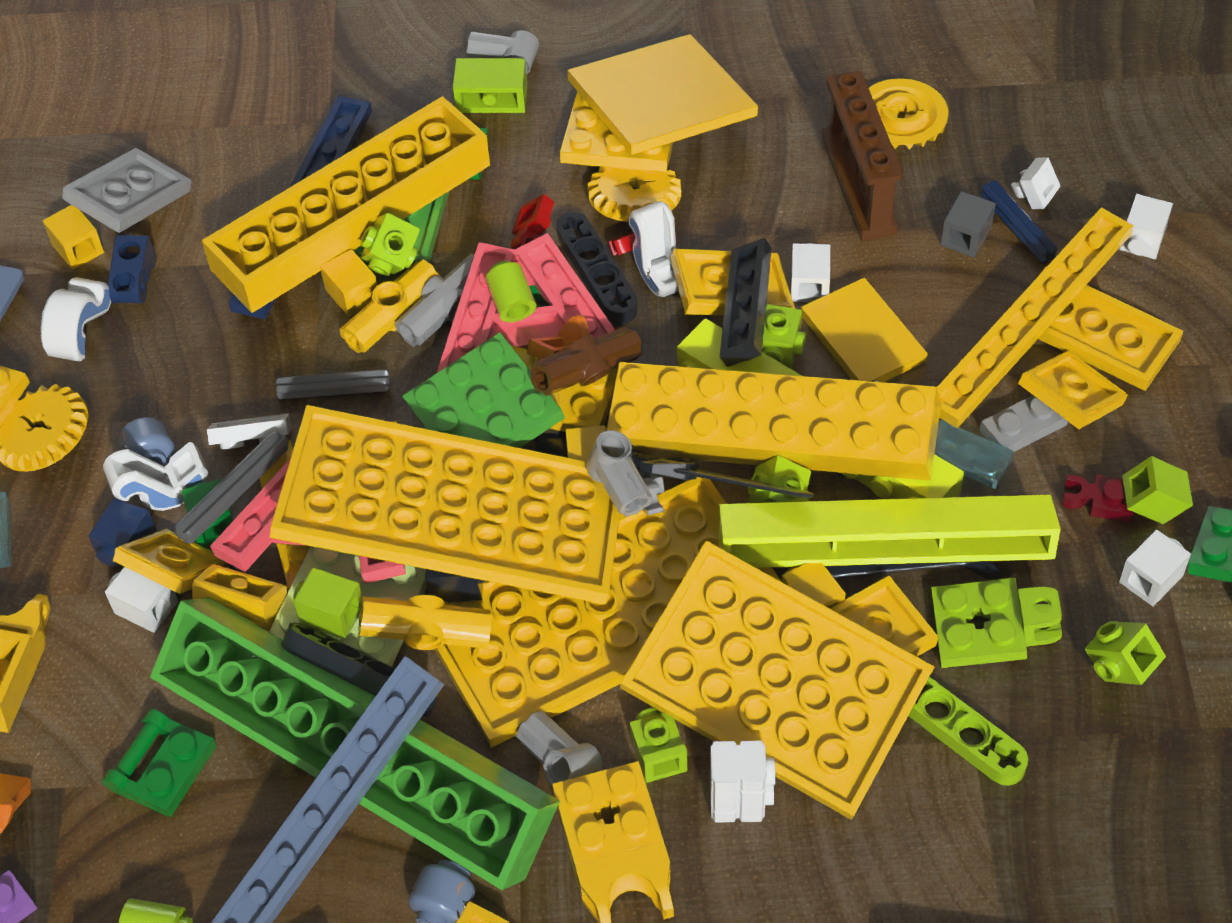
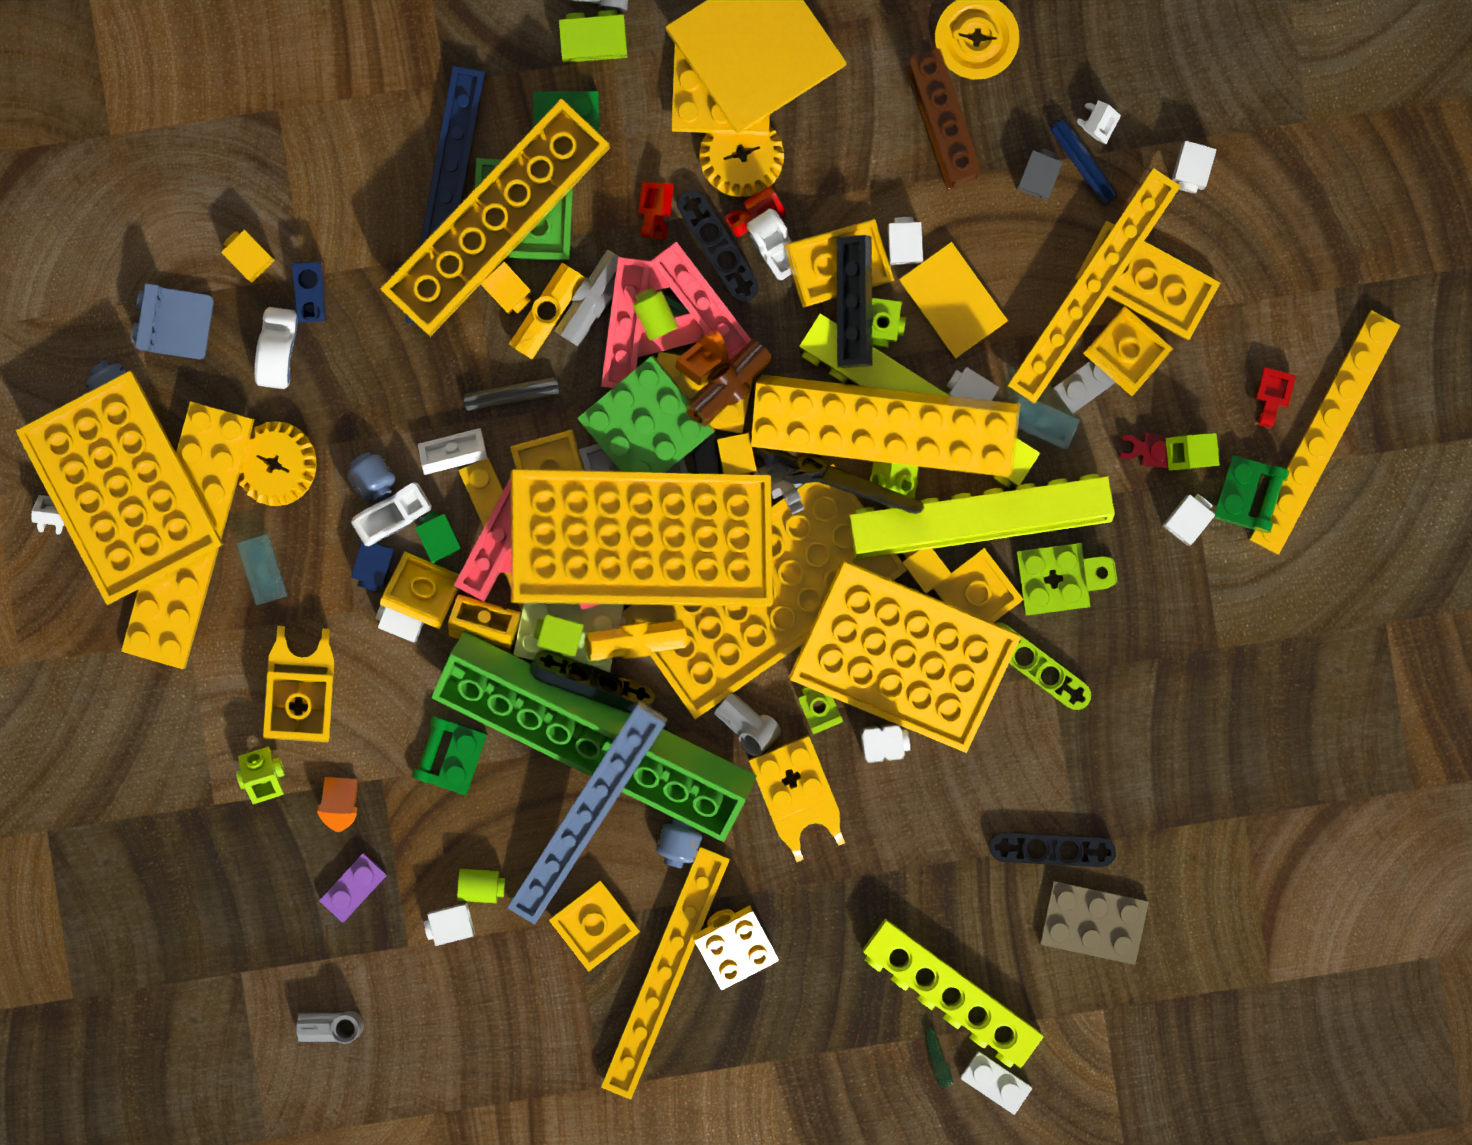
camera: 10 degrees left, 35 degrees up
(126, 190) = (286, 206): light grey plate -> none
(231, 487) = (458, 525): dark grey axle -> none
(389, 244) = (540, 262): lime brick -> none
(613, 468) = (770, 496): light grey piece -> none
(1125, 652) = (1162, 603): lime brick -> none

